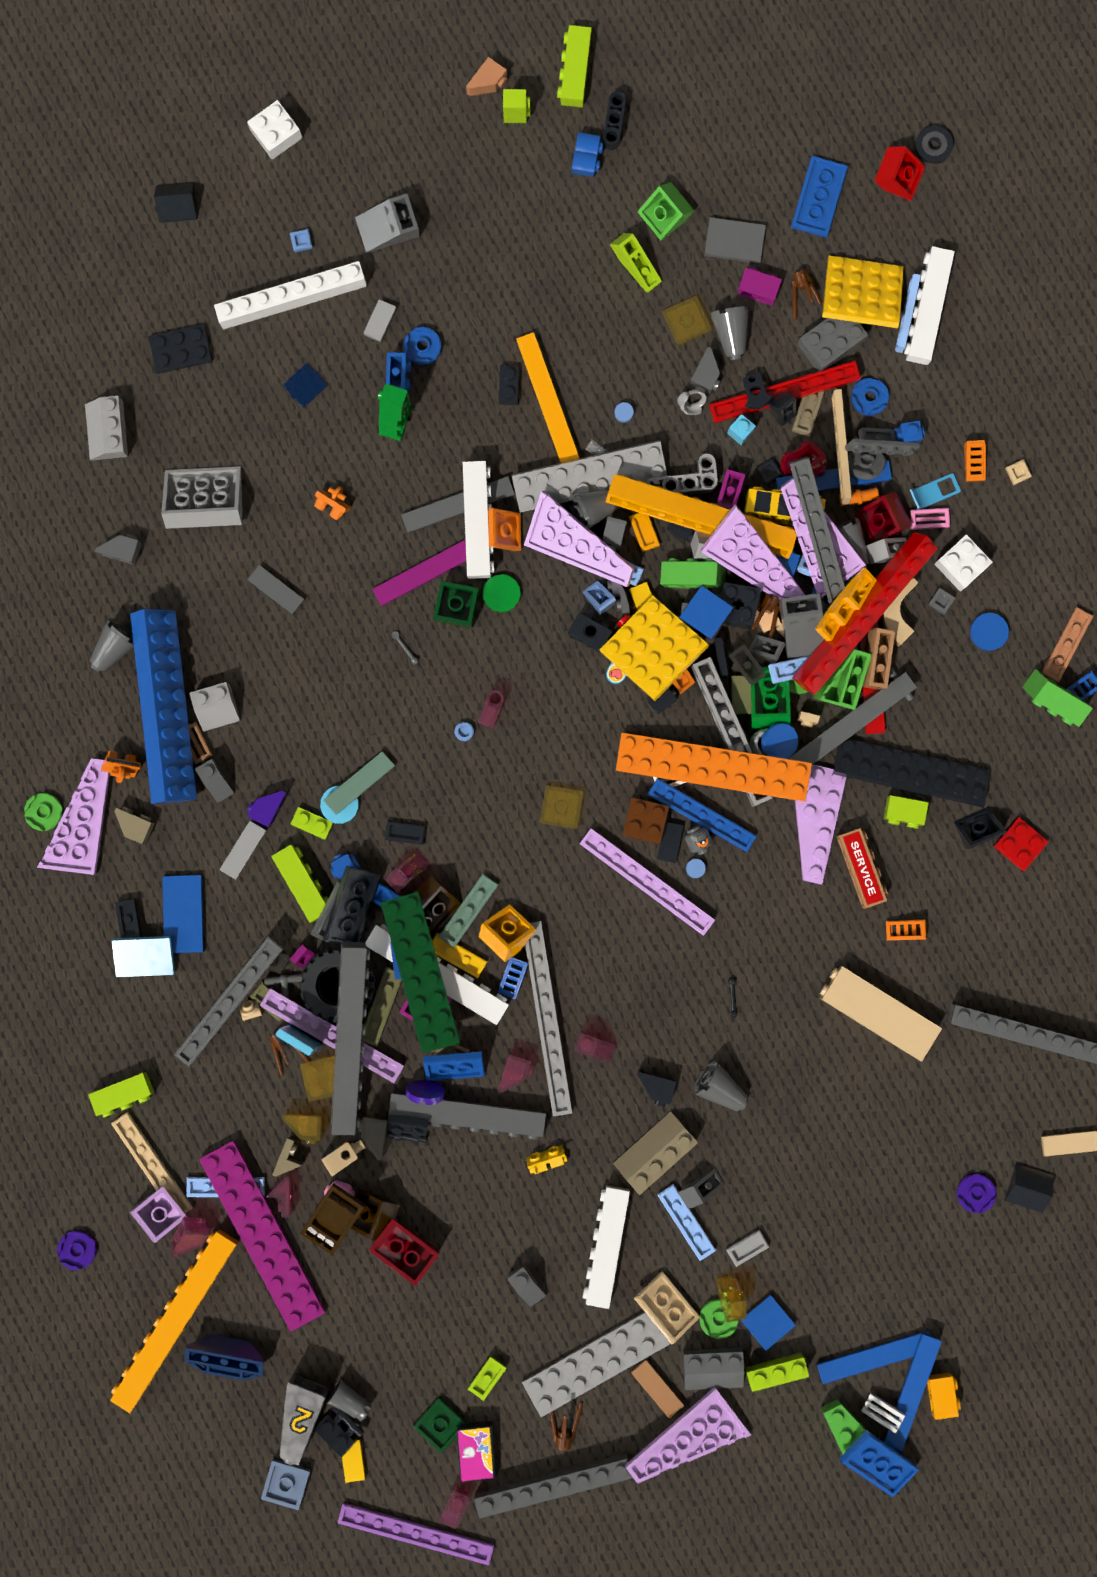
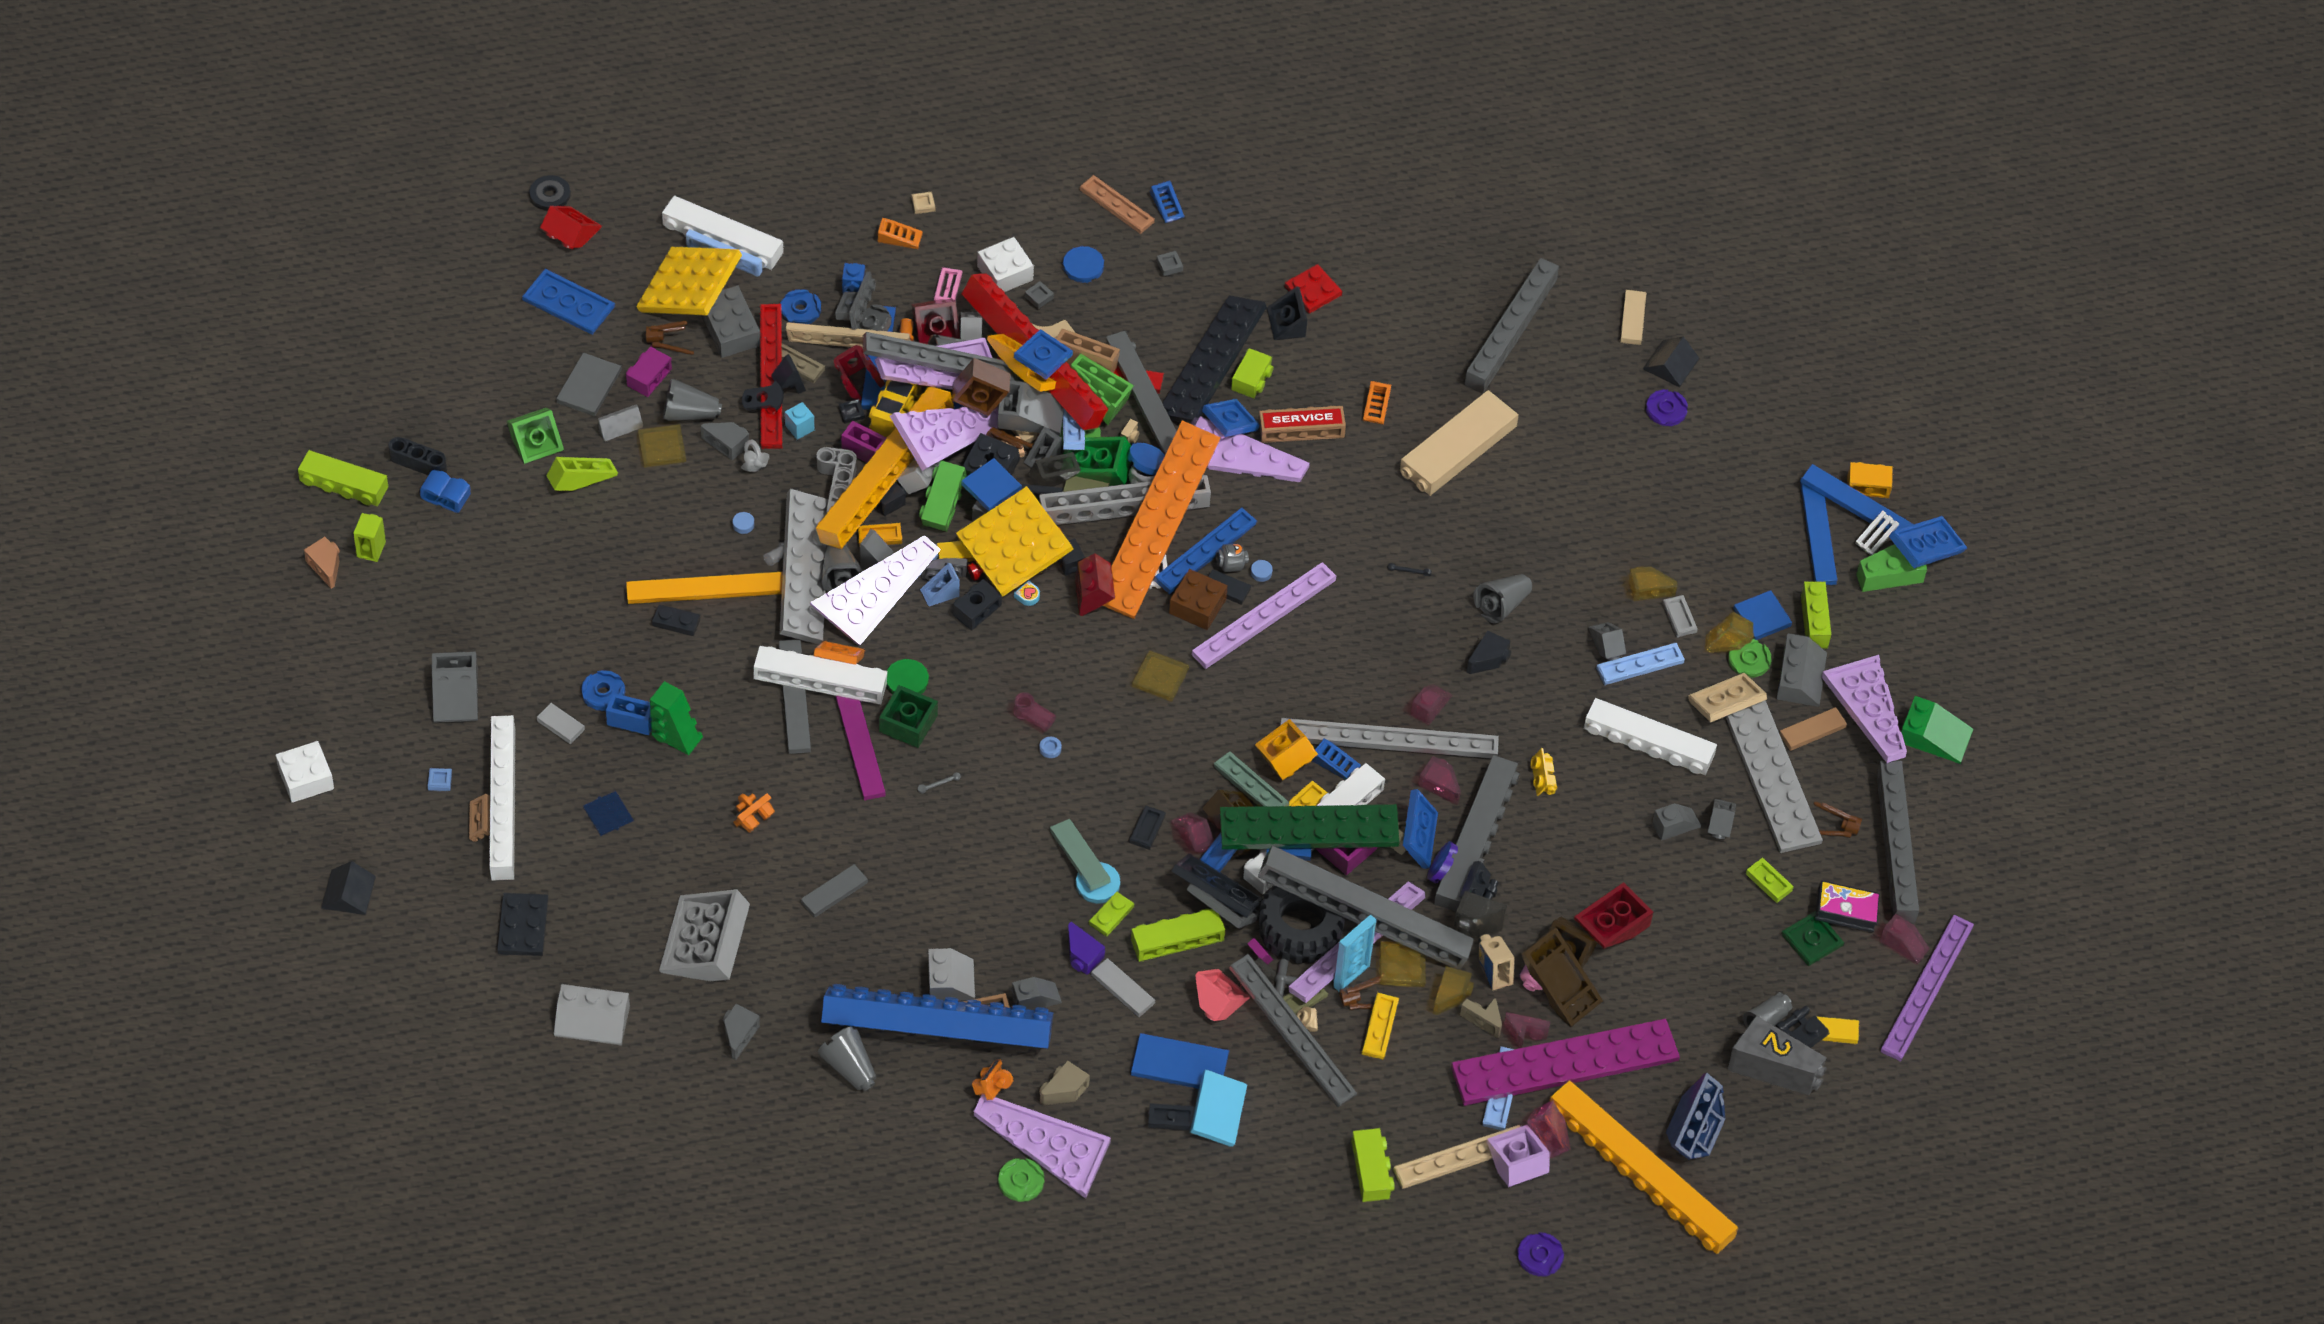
camera: 85 degrees left, 30 degrees down
(252, 930) = (1218, 994): none -> coral slope
(258, 1072) = (1380, 1026): none -> yellow tile
(268, 281) = (479, 817): none -> medium nougat tile
(285, 1484) = (1849, 1098): sand blue plate -> none
(340, 862) = (1171, 888): blue brick -> none
(539, 1325) = (1722, 819): none -> dark grey slope
(631, 729) = (1093, 583): none -> dark red slope
(655, 1153) = (1560, 670): dark tan slope -> none
(681, 1499) = (1935, 730): none -> slope
(698, 278) = (620, 422): none -> flat silver slope
(771, 1214) = (1650, 584): none -> clear yellow slope
(802, 576) = (981, 386): none -> reddish brown brick
(850, 803) = (1230, 417): none -> blue tile
(851, 621) = (1043, 354): none -> blue tile
(930, 493) = (921, 281): dark azure piece -> none
(1010, 708) = (1169, 263): none -> dark grey plate
(1057, 699) = (1169, 220): bright green wedge -> none

